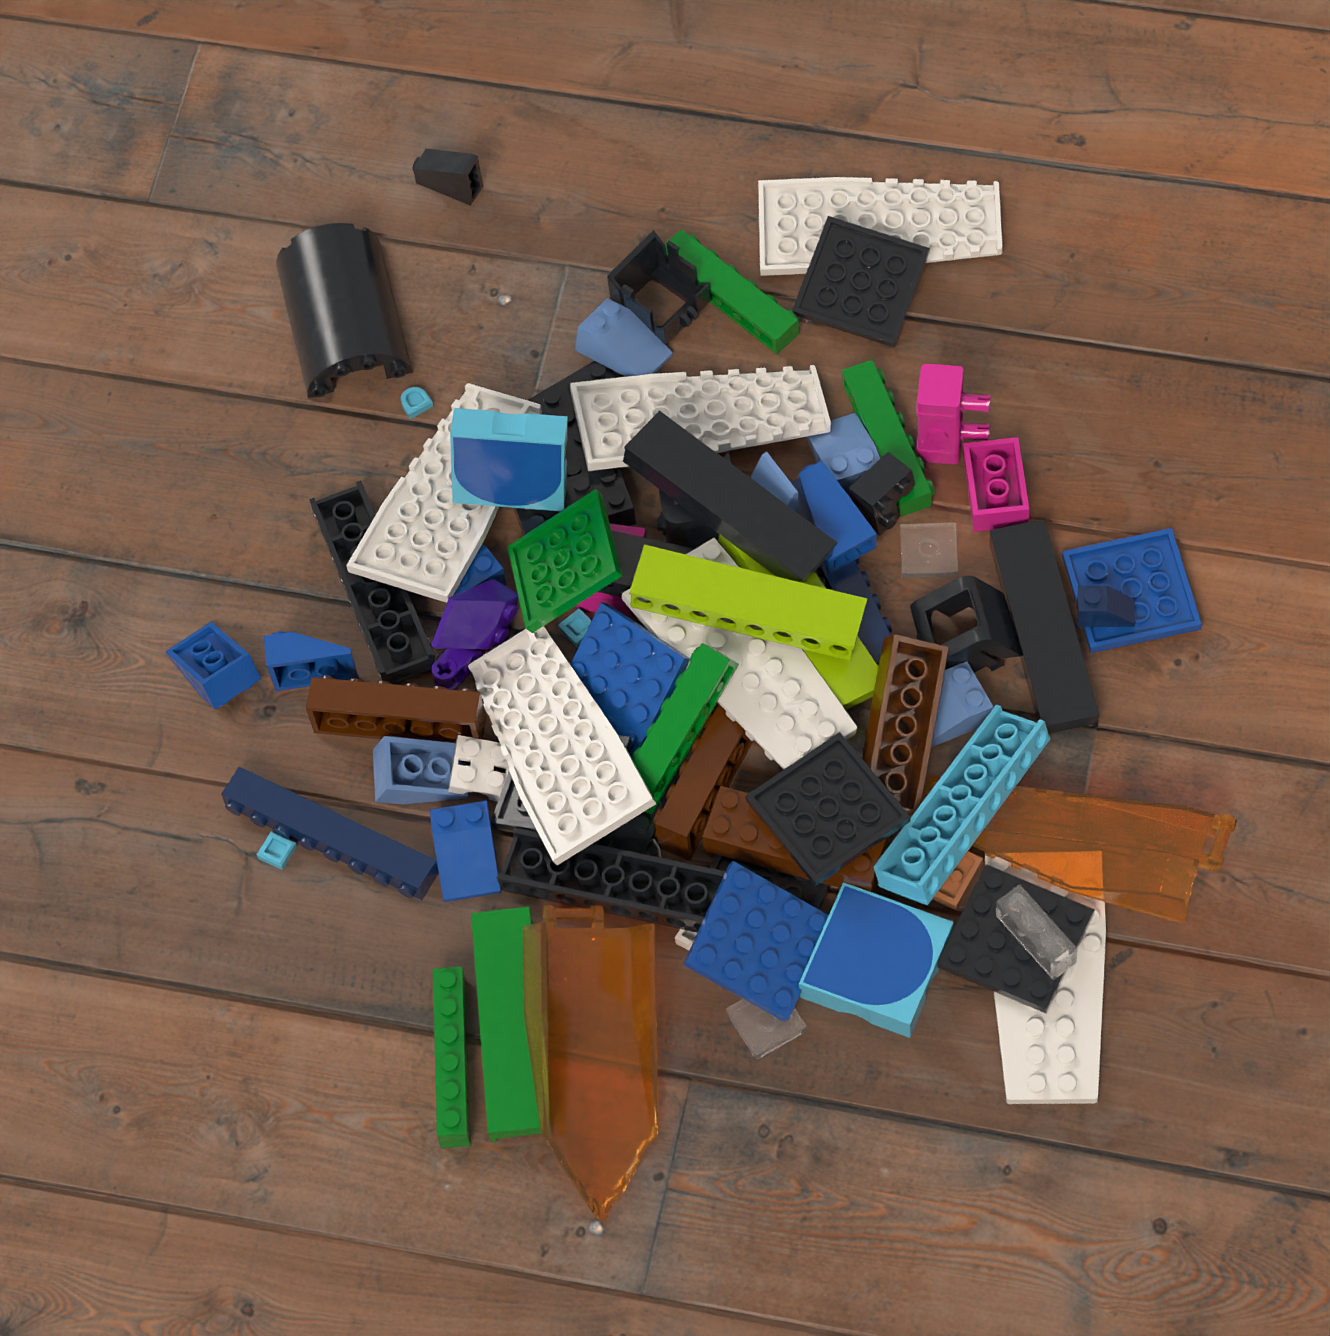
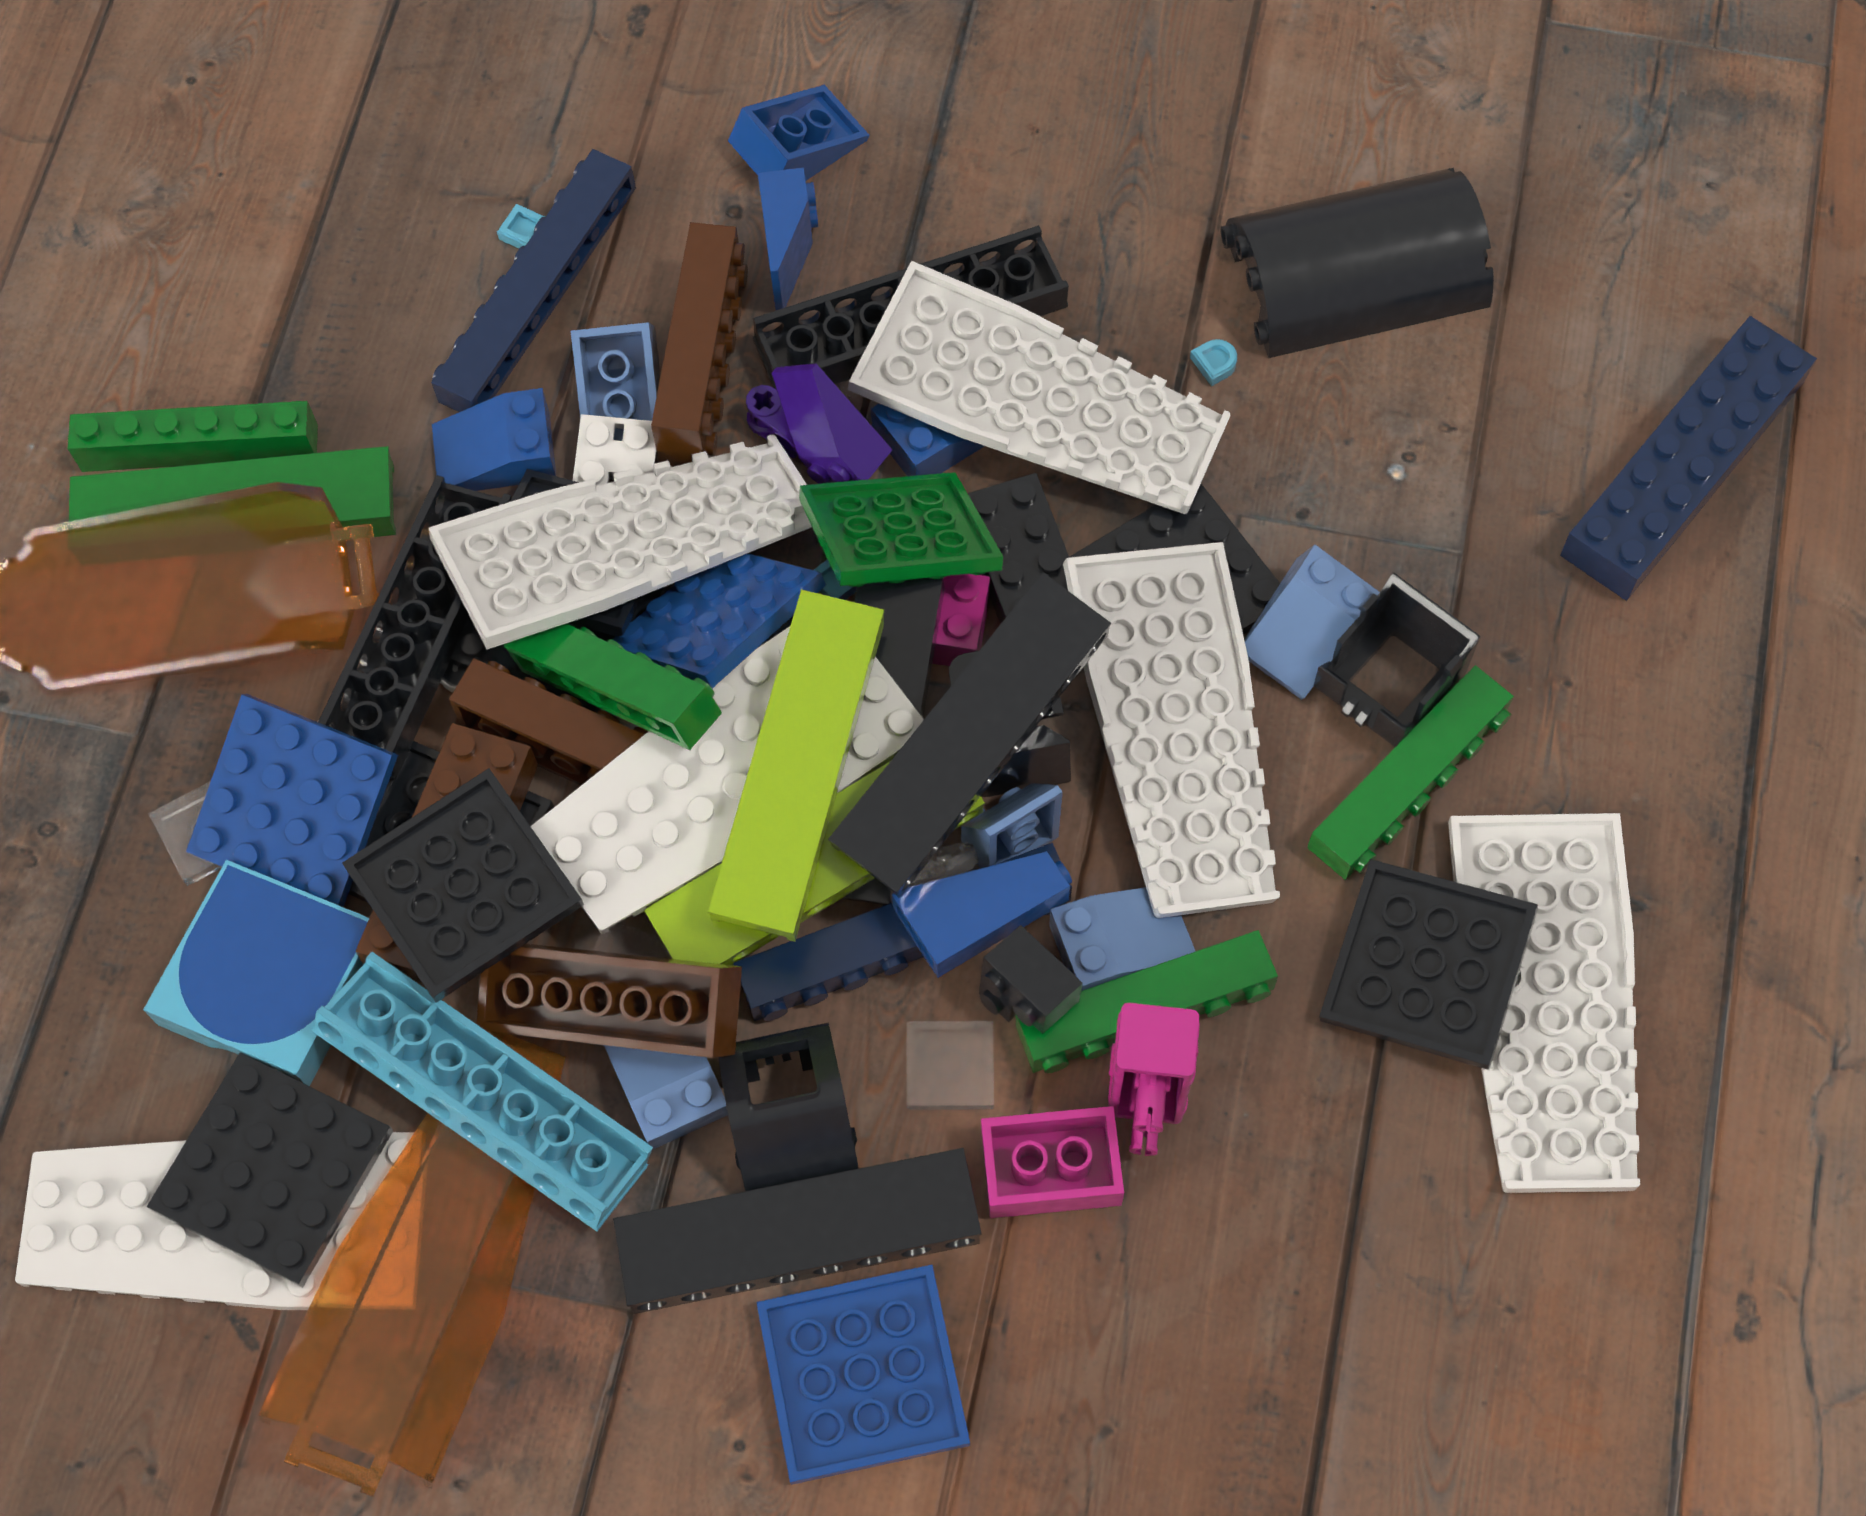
camera: 85 degrees right, 5 degrees up
(450, 174) = (1601, 382): black slope -> none
(507, 131) = (1687, 458): none -> dark blue brick
(508, 459) = (1040, 428): tile -> none
(959, 881) = (382, 1097): nougat plate -> none
(1036, 932) = (246, 1186): clear brick -> none
(1104, 607) = (813, 1322): dark blue slope -> none

